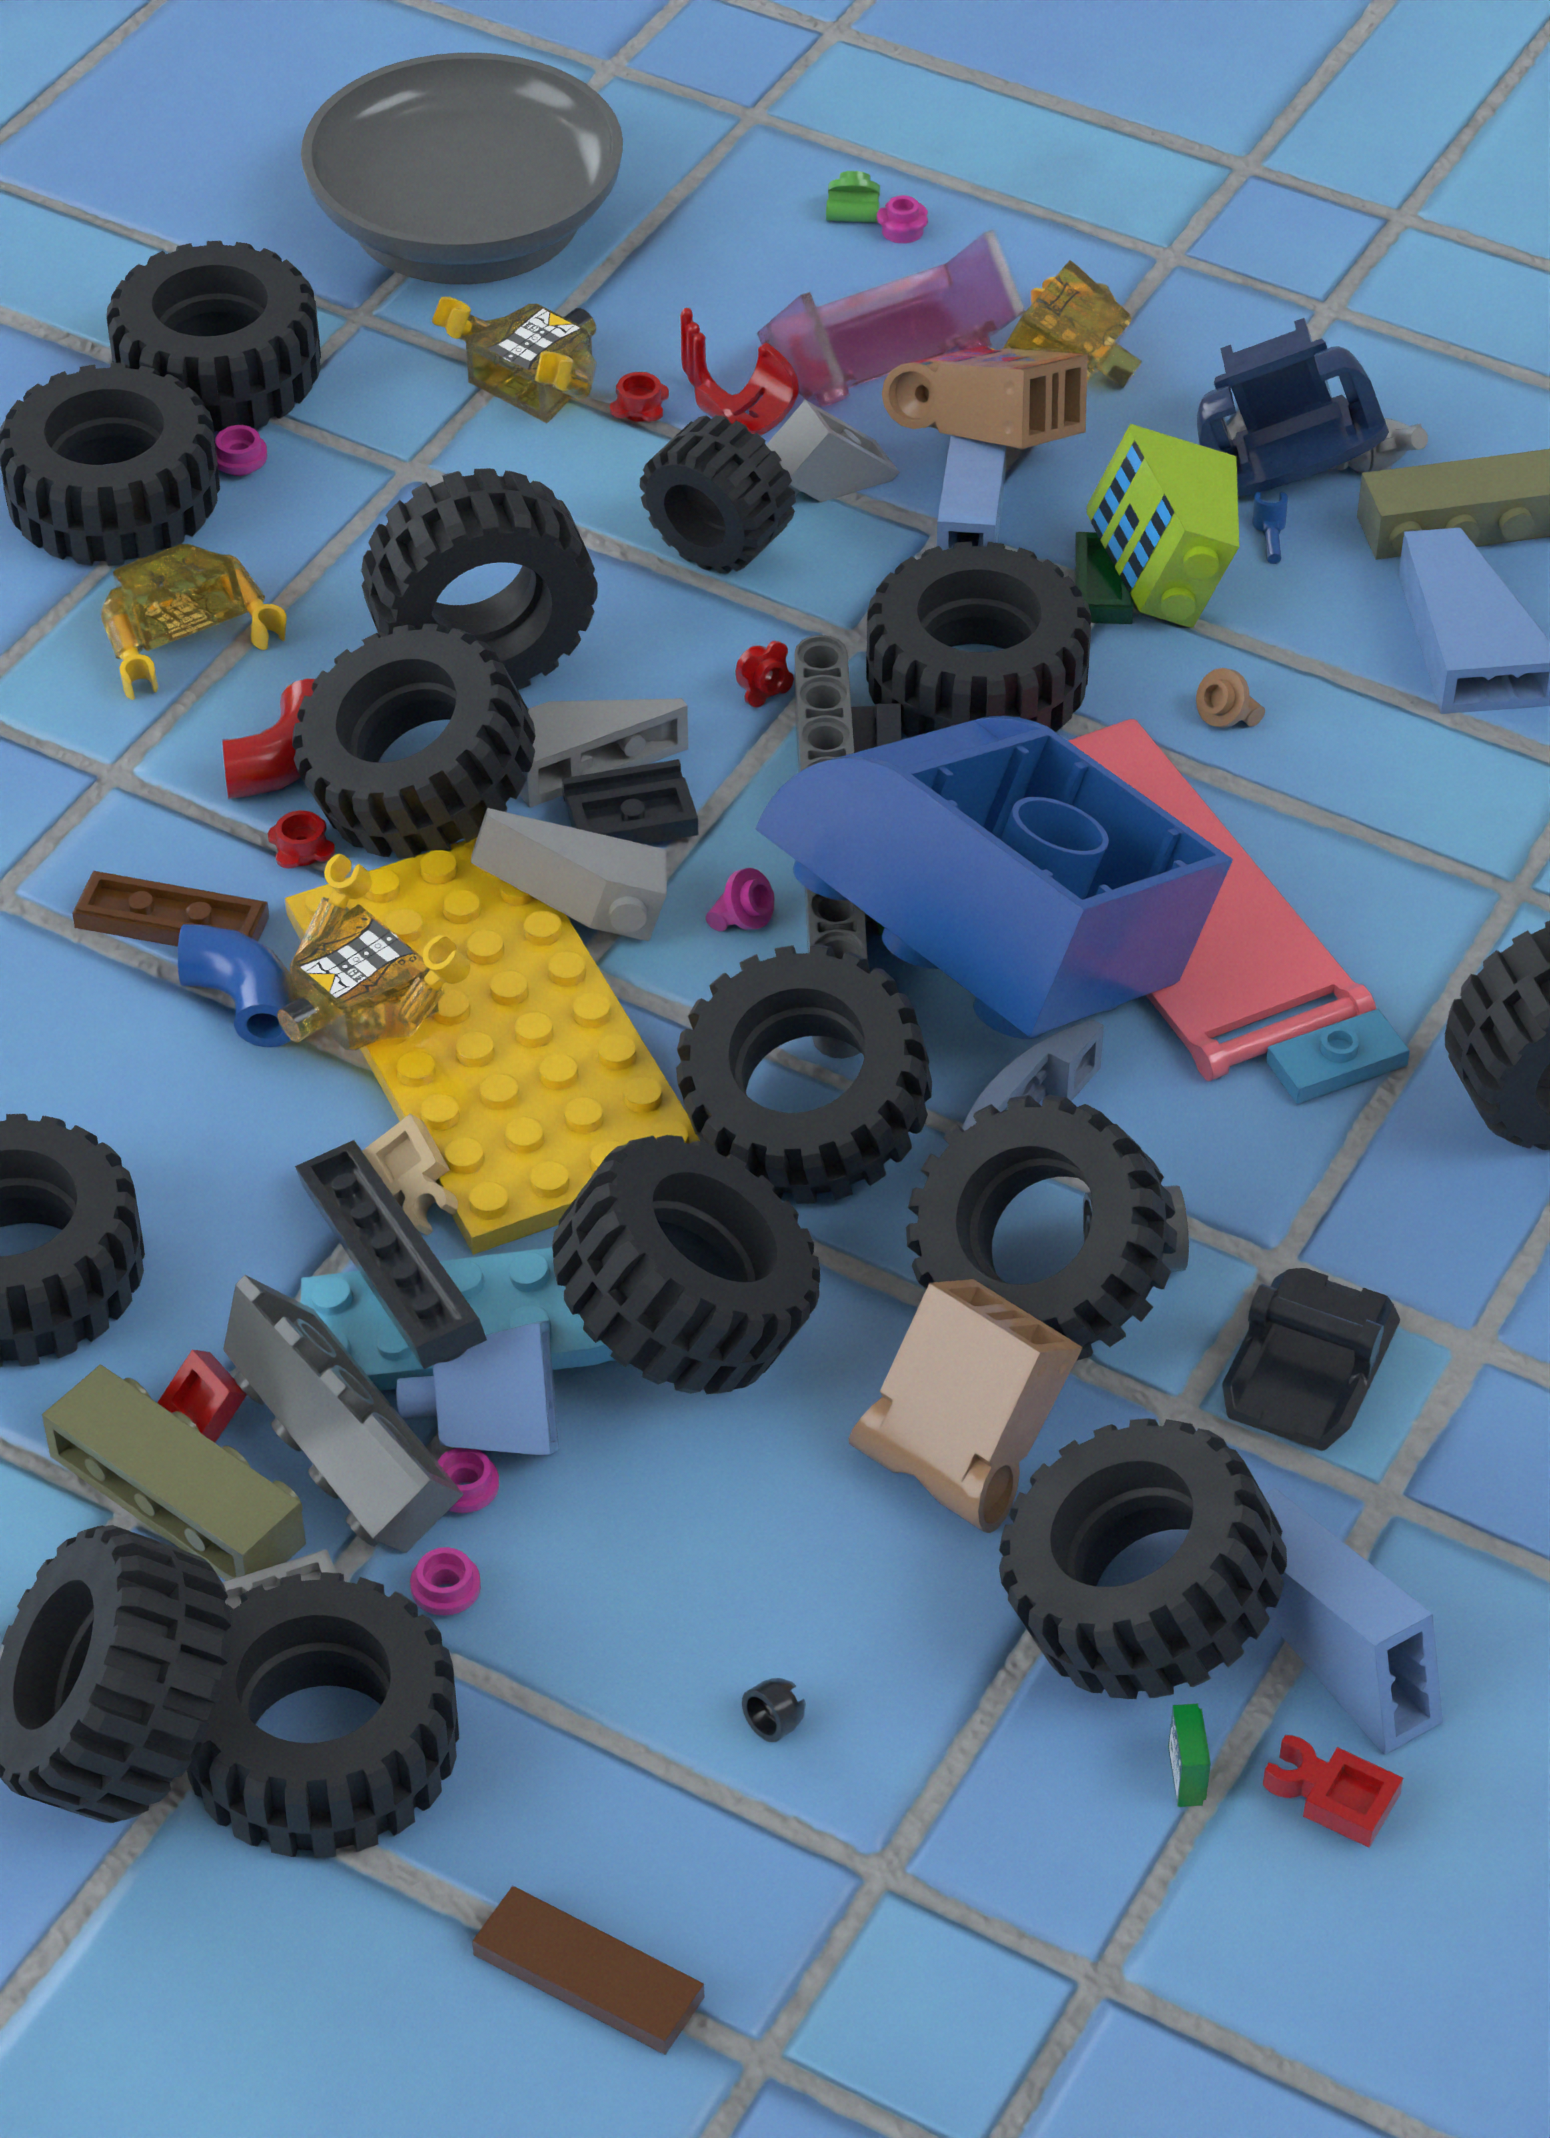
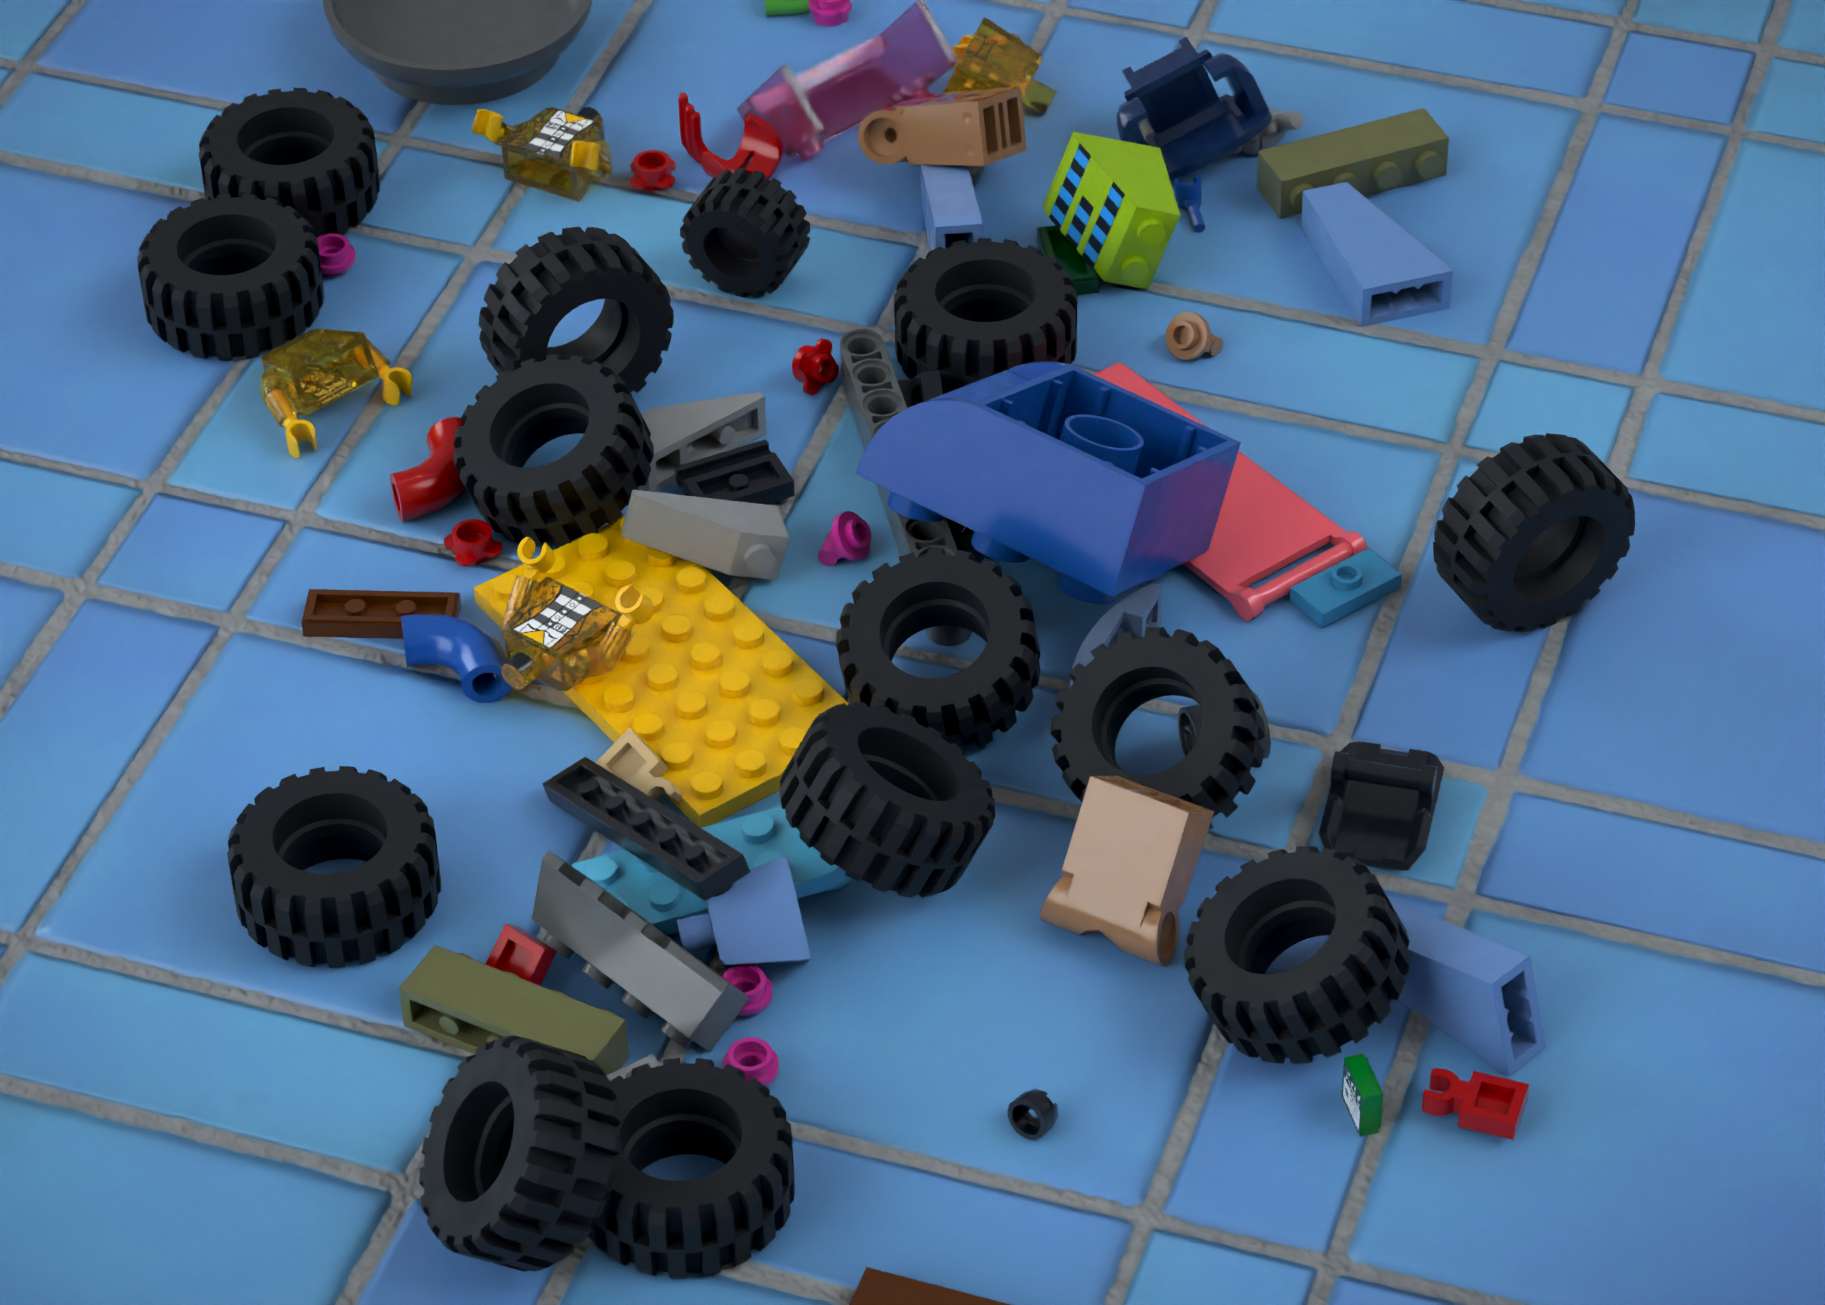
camera: 10 degrees left, 5 degrees down
(829, 455) = (826, 193): light grey slope -> none

